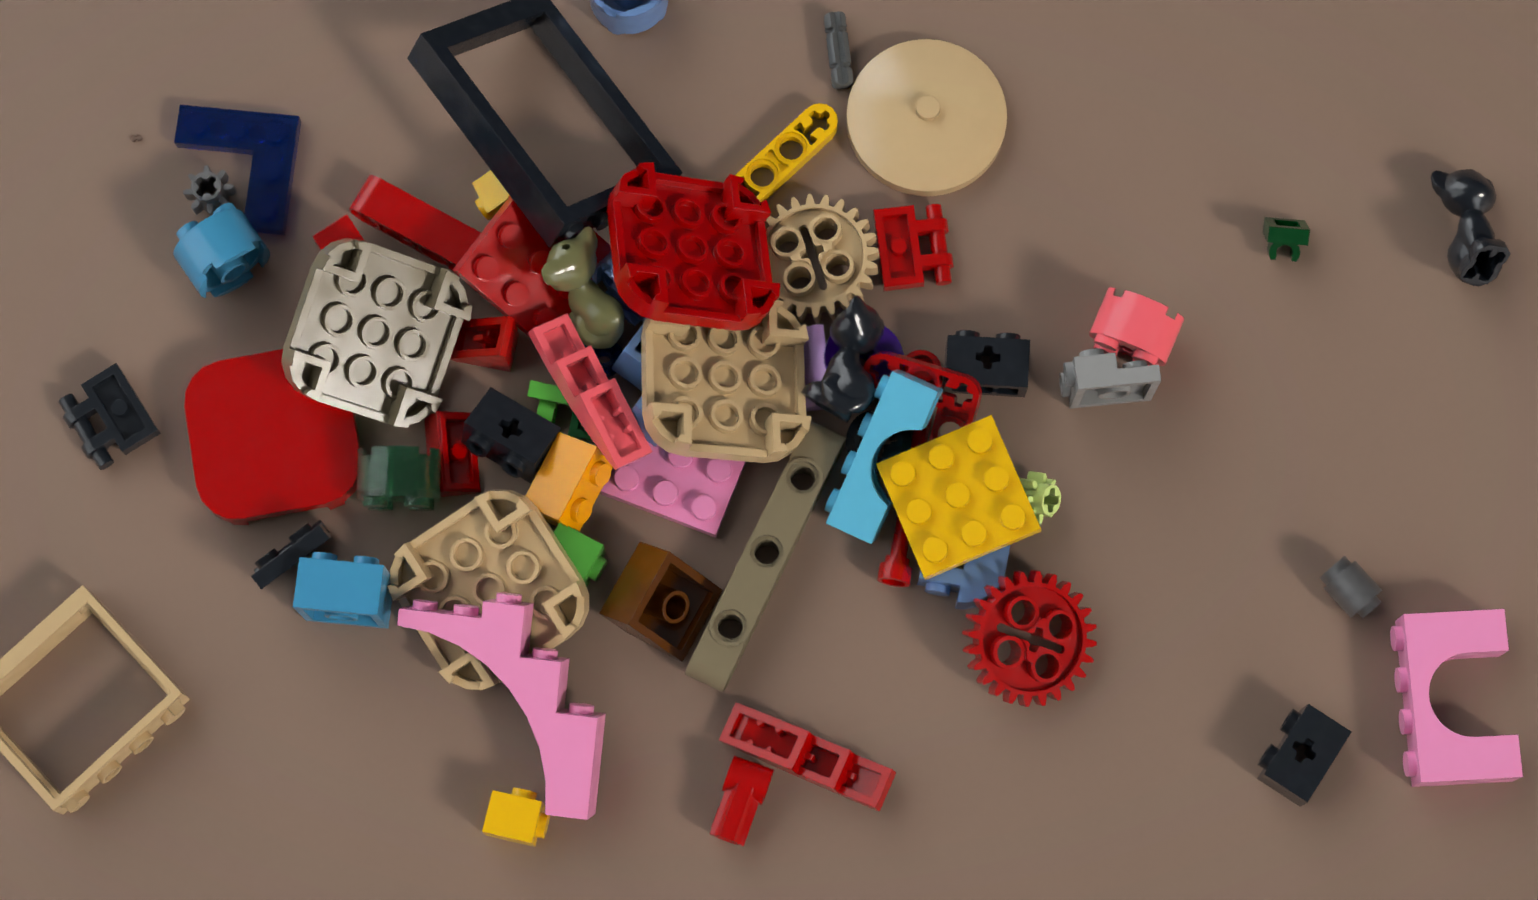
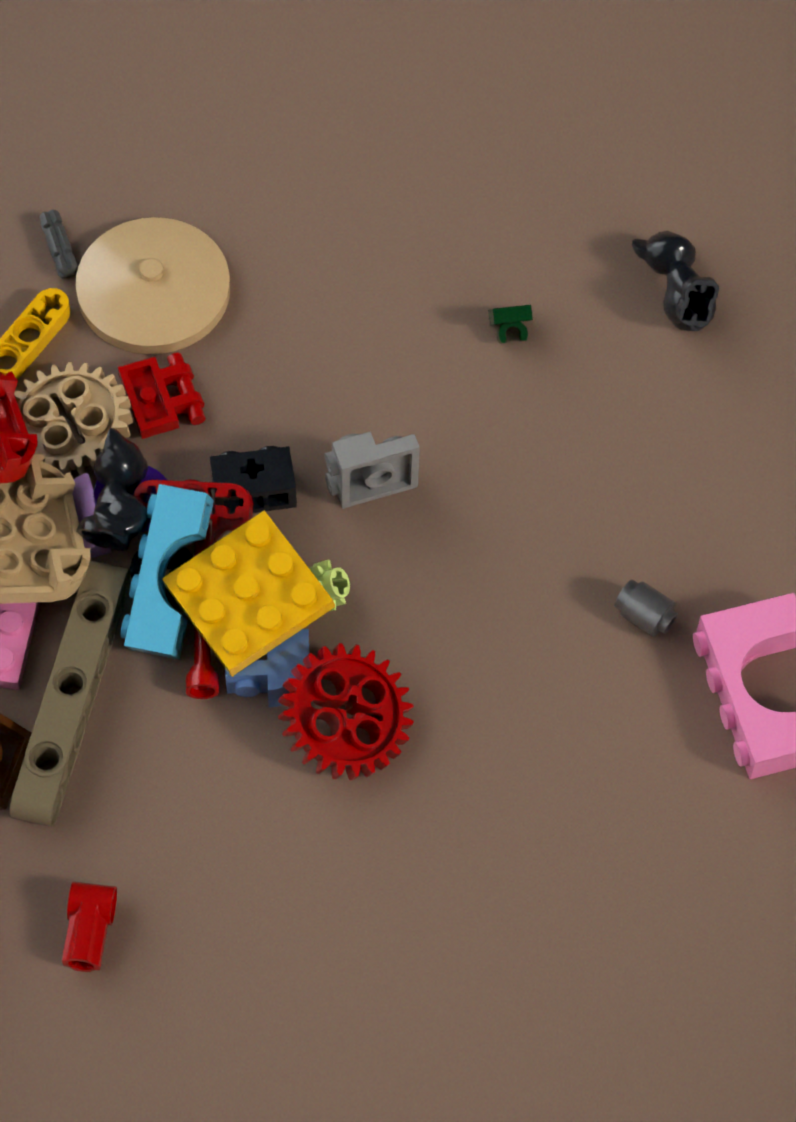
camera: 15 degrees left, 15 degrees down
(807, 756) = (148, 870): red slope -> none
(1135, 327) = (388, 410): coral brick -> none
(1323, 742) = (632, 788): black brick -> none

